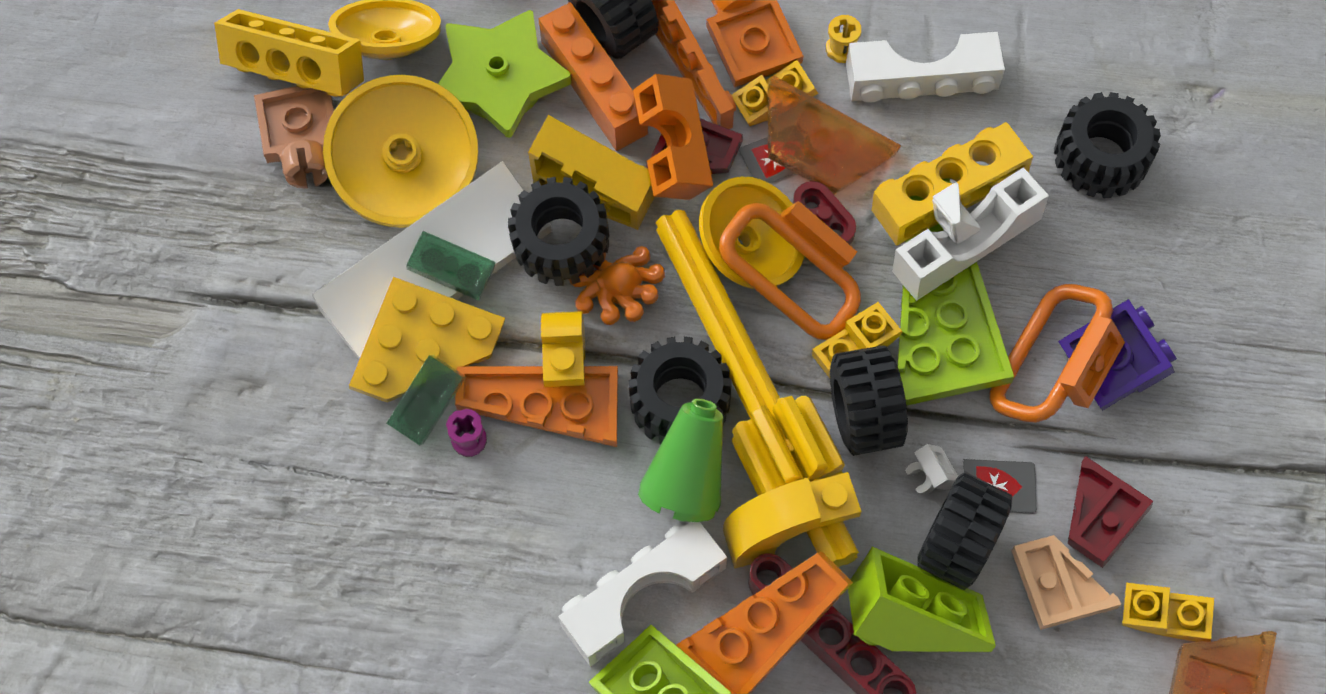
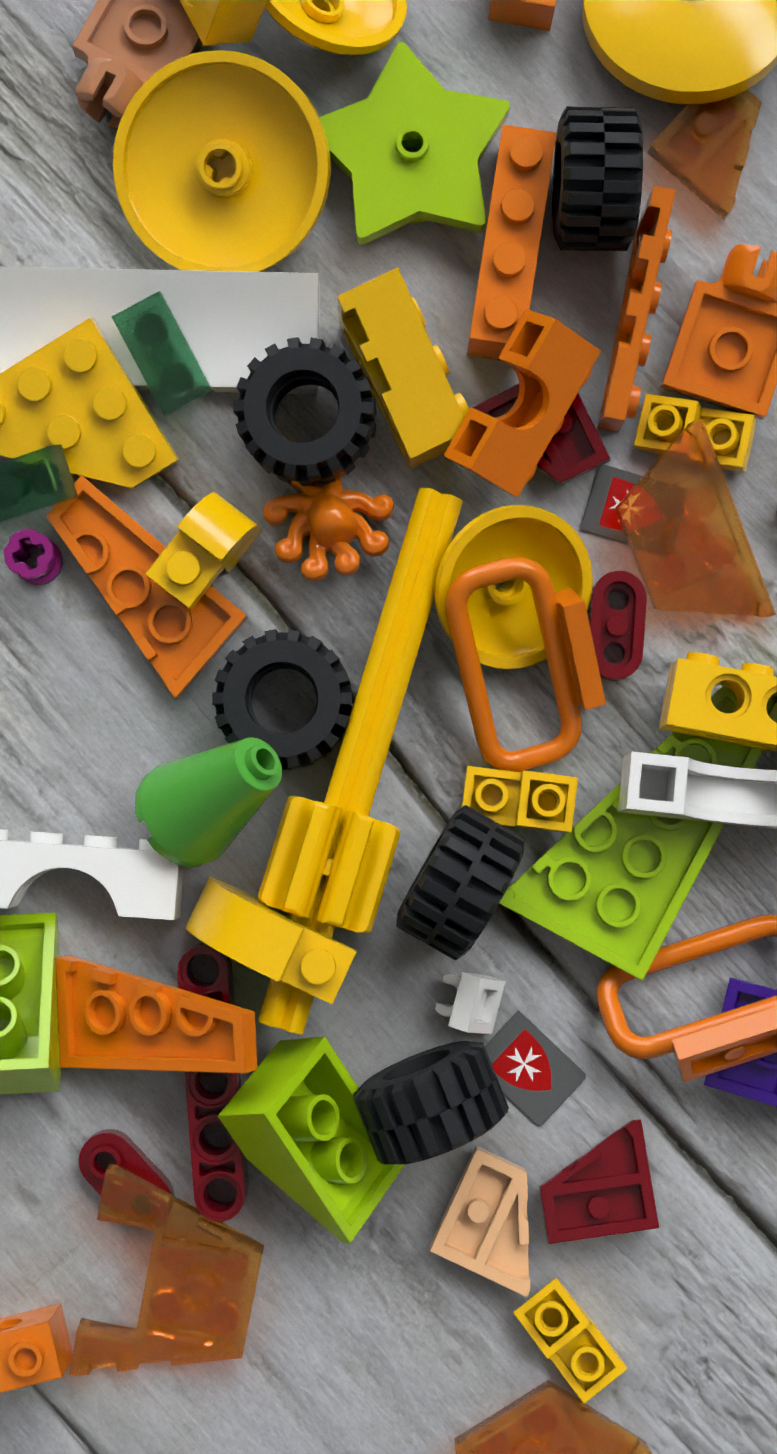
camera: 35 degrees right, 20 degrees up
(953, 215) = (738, 763): white slope -> none

